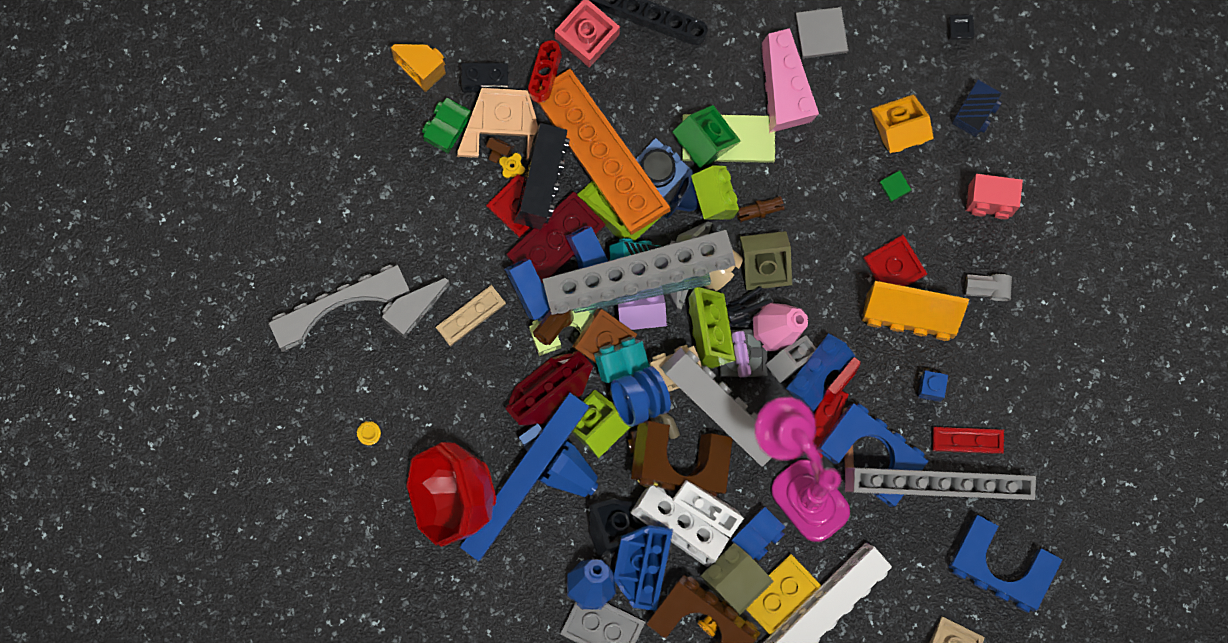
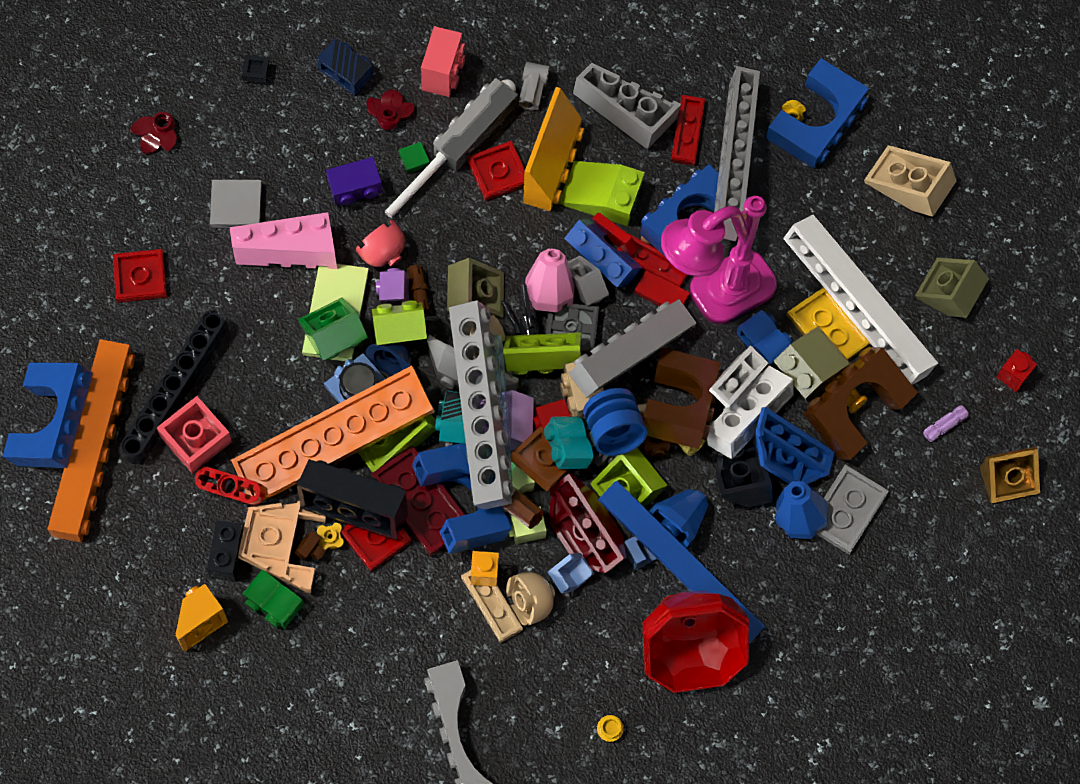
camera: 80 degrees left, 10 degrees down
(410, 309) = (479, 667): light grey slope -> none
(476, 348) = (531, 597): none -> tan cylinder
(495, 302) = (484, 568): none -> light orange brick
(503, 380) = (571, 572): none -> medium blue panel
(651, 342) = (544, 413): none -> red brick
(741, 354) = (574, 326): lavender axle -> none
(755, 185) = (393, 287): none -> medium lavender brick
(795, 169) = (383, 246): none -> coral cylinder
(857, 134) = (354, 181): none -> dark purple brick
(888, 365) = (603, 190): none -> lime slope
(902, 123) = (349, 137): light orange slope -> none
(926, 230) = (465, 134): none -> piece
(932, 386) = (630, 150): blue brick -> none
(945, 156) = (389, 109): none -> dark red plate
(977, 382) = (626, 105): none -> light grey wedge
(1003, 539) = (794, 109): none -> yellow plate

